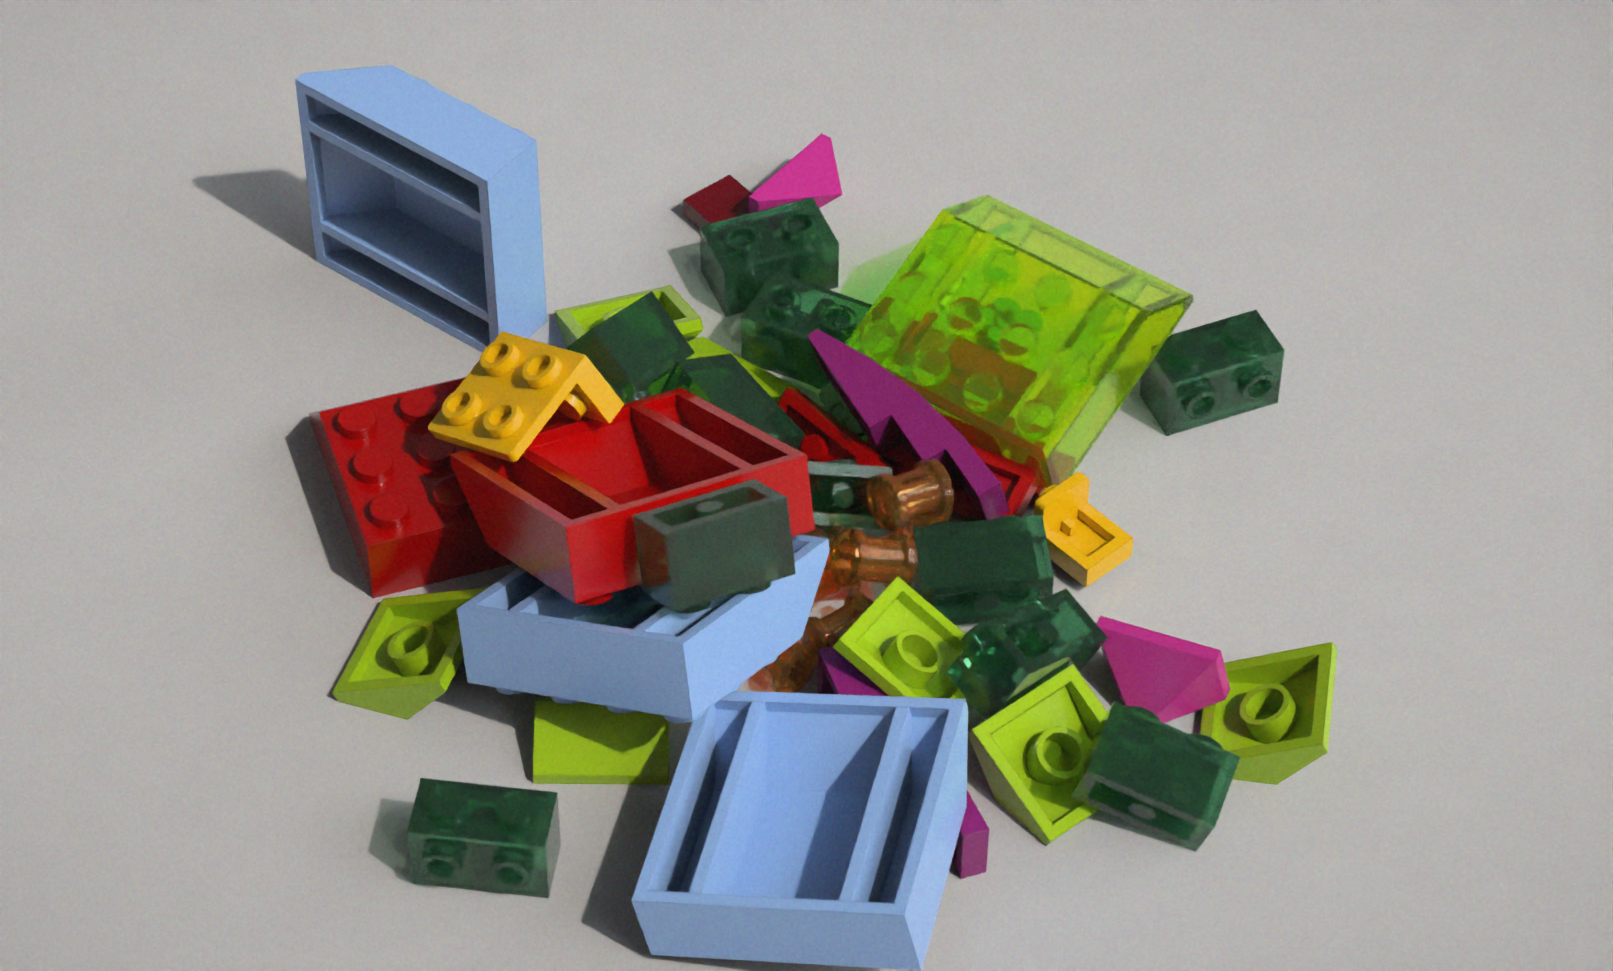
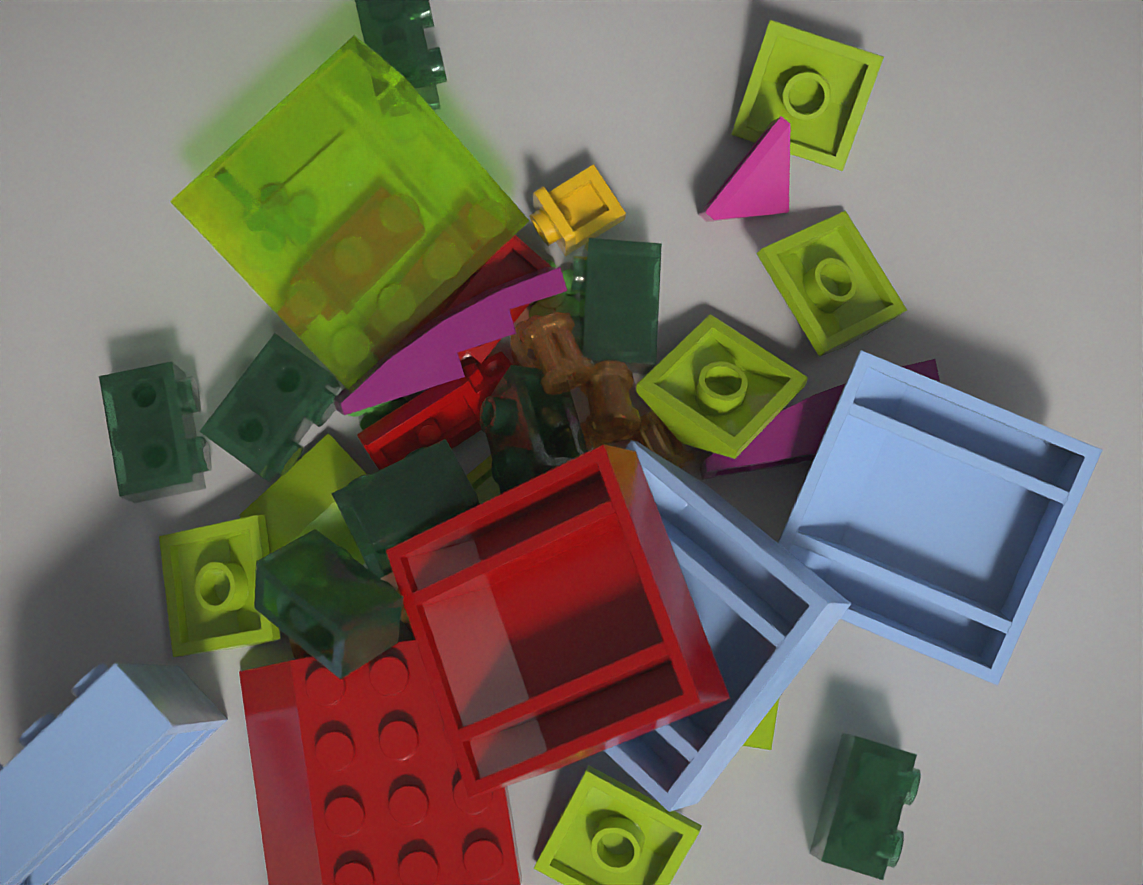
camera: 85 degrees left, 35 degrees up
(517, 392) = (418, 720): yellow bracket -> none
(714, 546) = (708, 553): clear green brick -> none
(717, 202) = (62, 466): dark red tile -> none
(805, 176) = (70, 382): dark pink slope -> none
(1023, 650) = (745, 286): clear green brick -> none
(1156, 775) = (887, 205): clear green brick -> none

